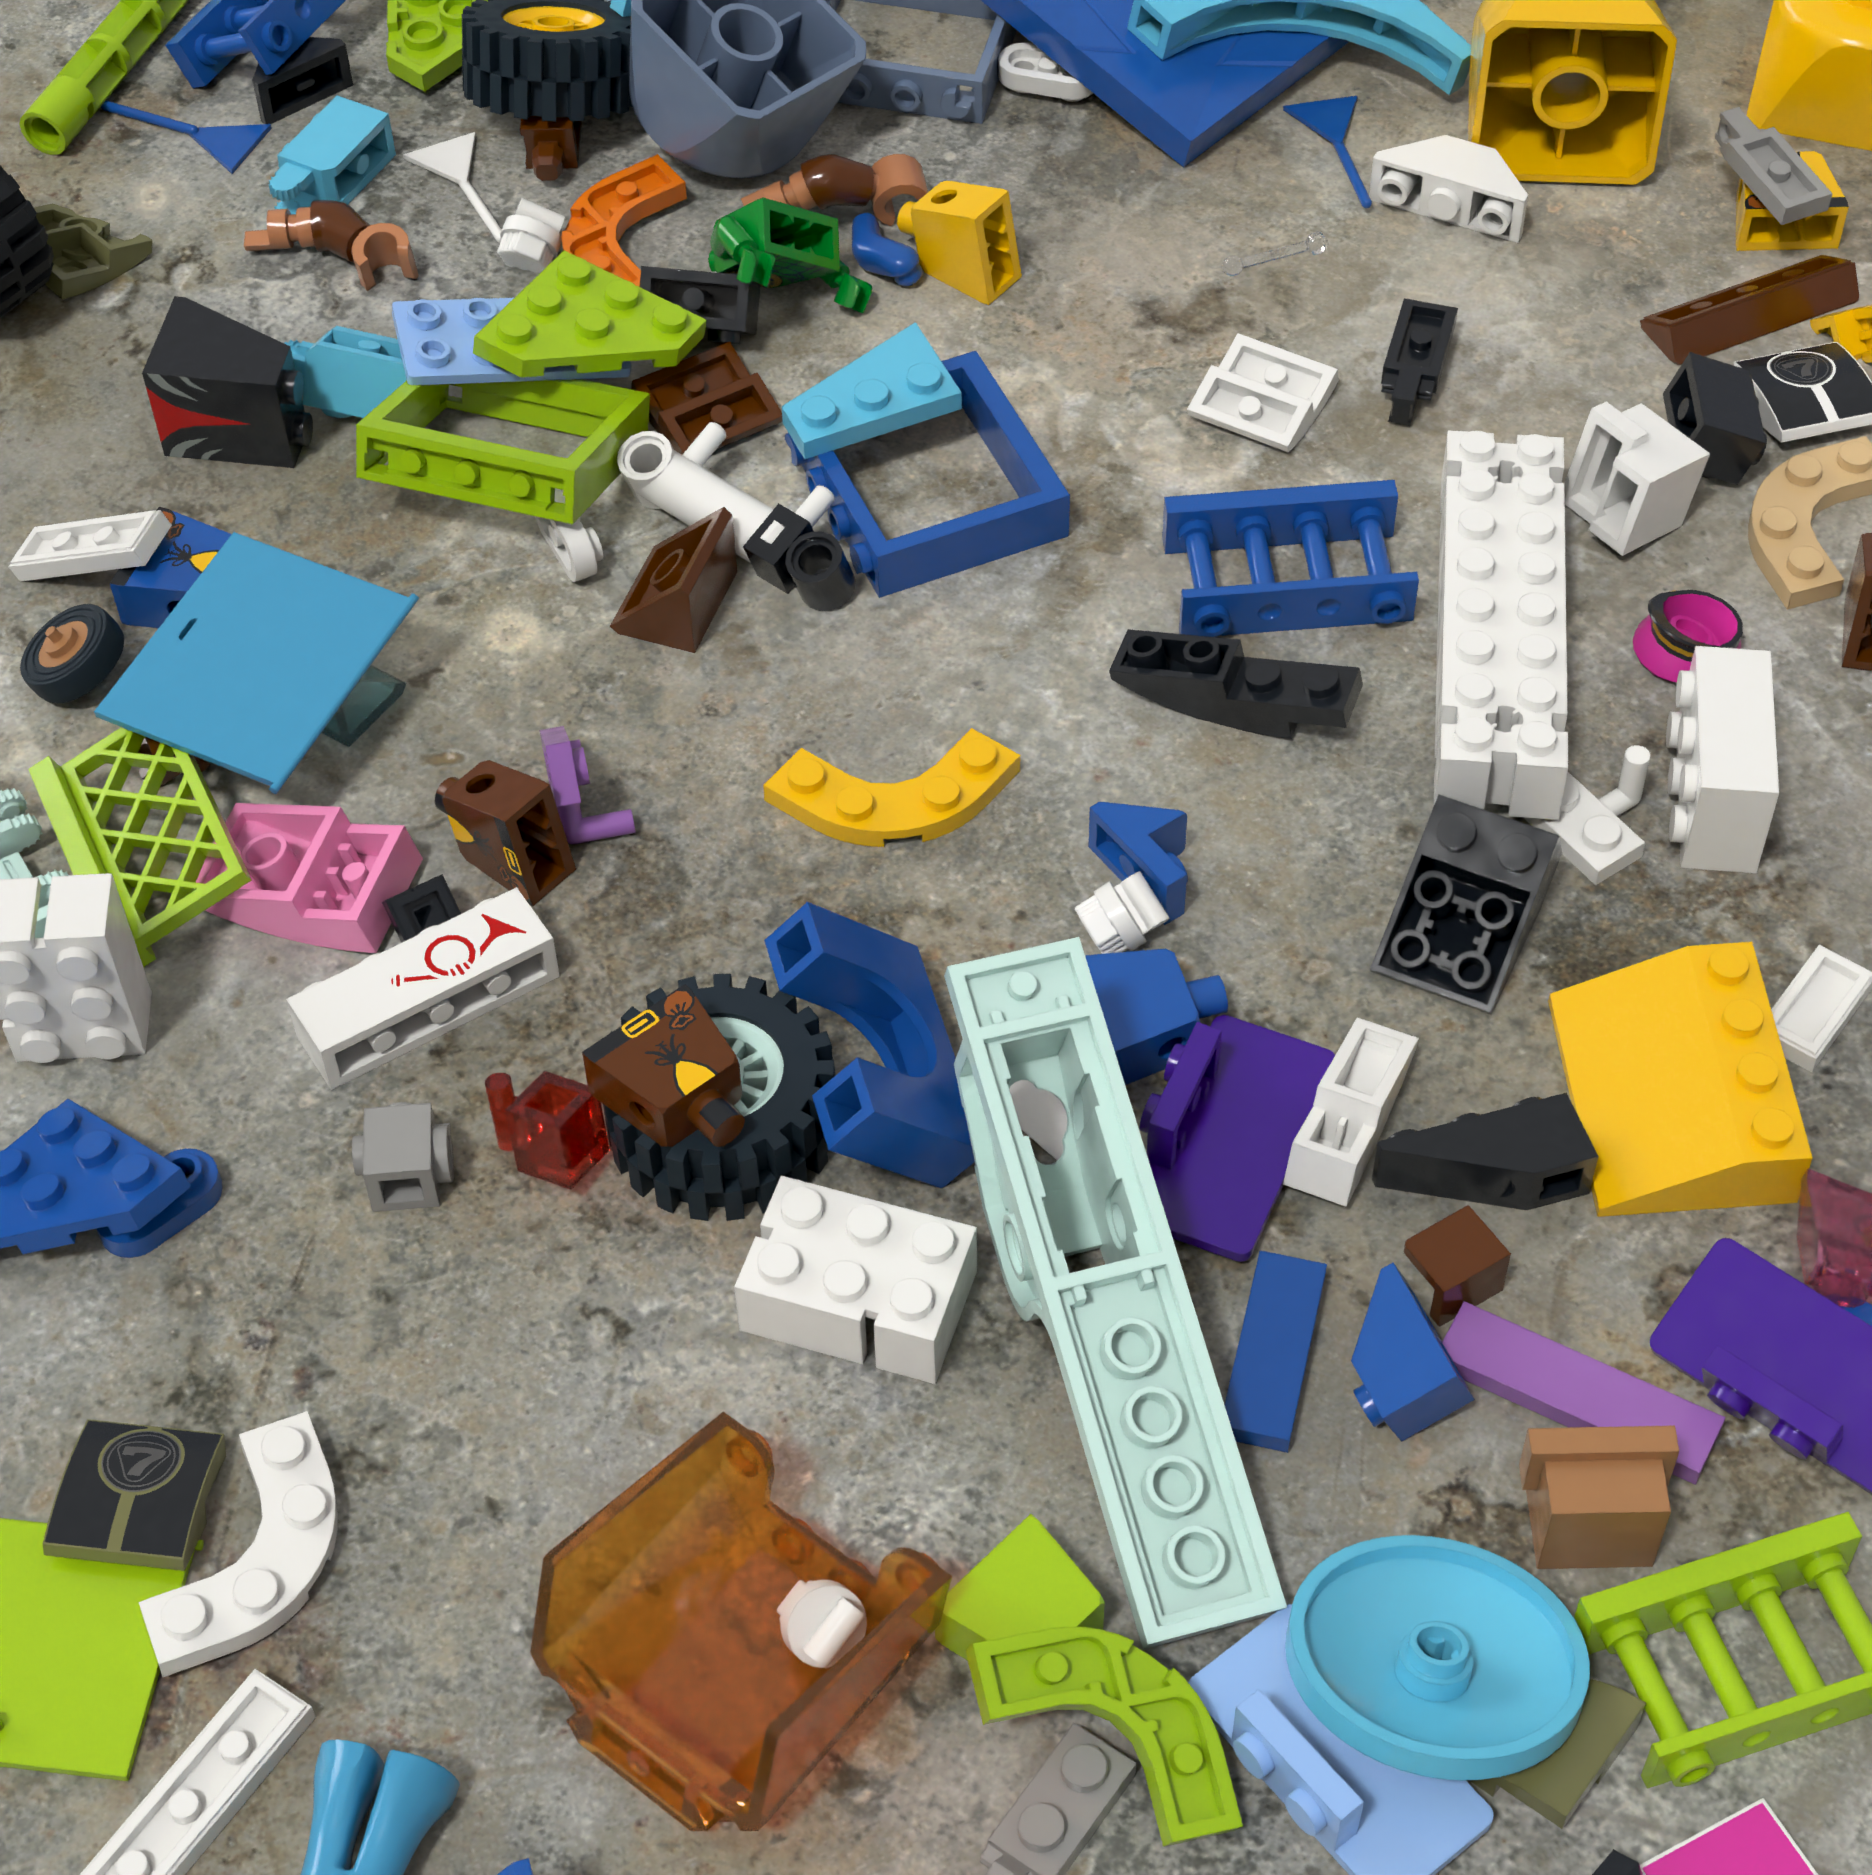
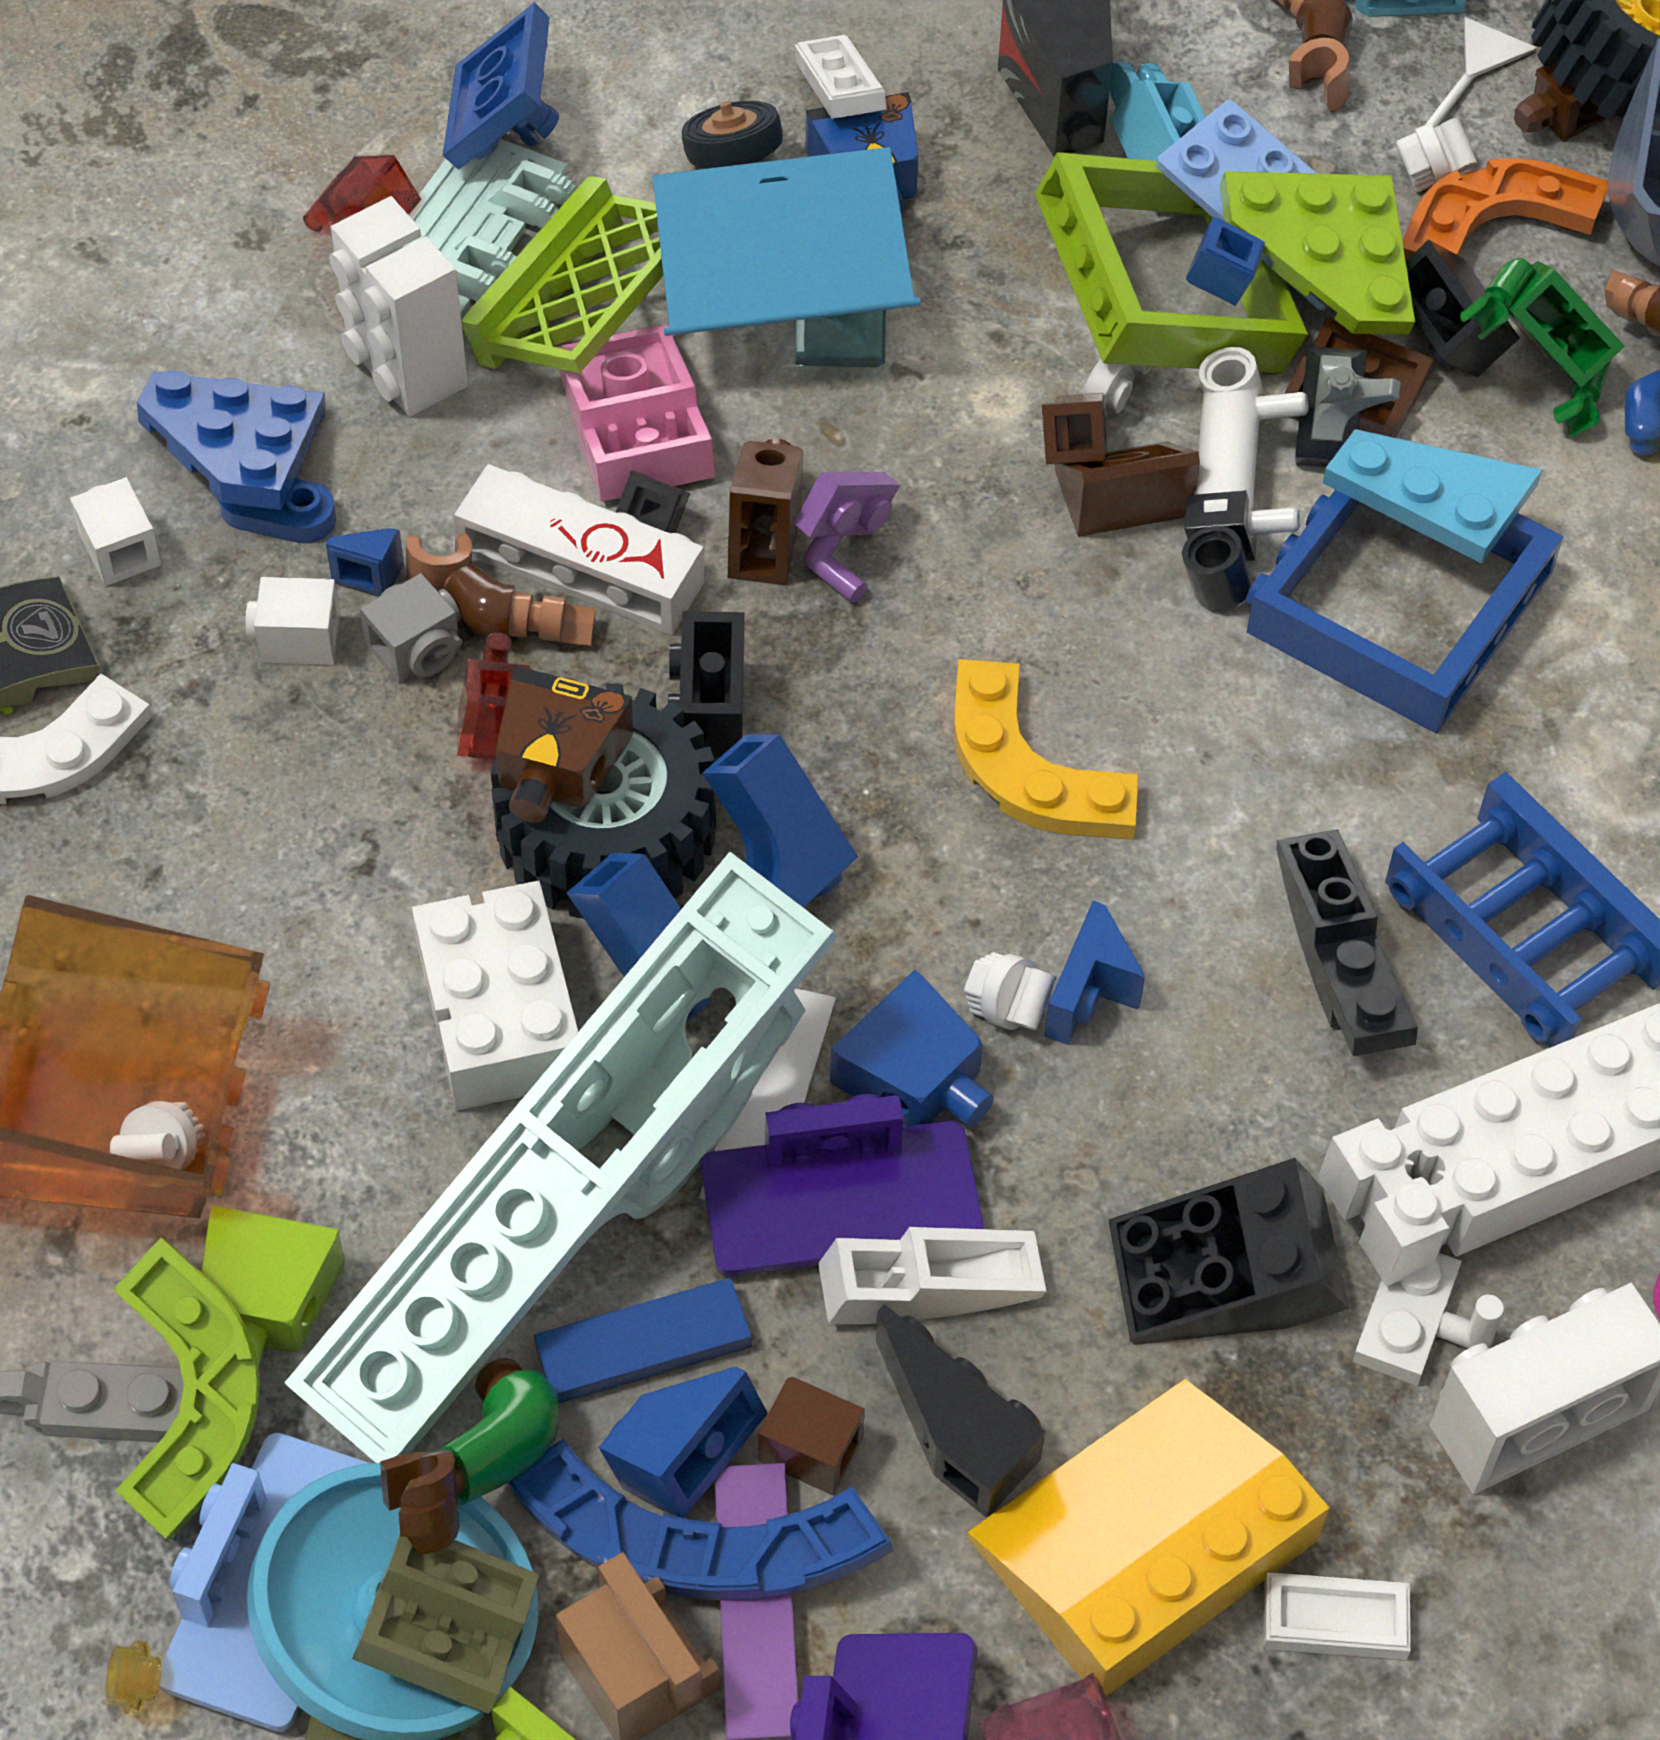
camera: 55 degrees right, 5 degrees up
(79, 1343) = (115, 531): none -> white brick
(294, 1157) = (366, 559): none -> blue slope
(316, 1243) = (295, 620): none -> white brick
(436, 1078) = (495, 606): none -> nougat piece
(559, 387) = (1225, 261): none -> blue slope
(603, 589) = (1075, 429): none -> reddish brown brick
(650, 946) = (711, 675): none -> black brick
(736, 408) = (1335, 401): none -> piece
(1323, 1474) = (513, 1435): none -> piece
(1485, 1613) = (447, 1620): none -> olive slope
(1488, 1439) = (696, 1555): none -> blue tile

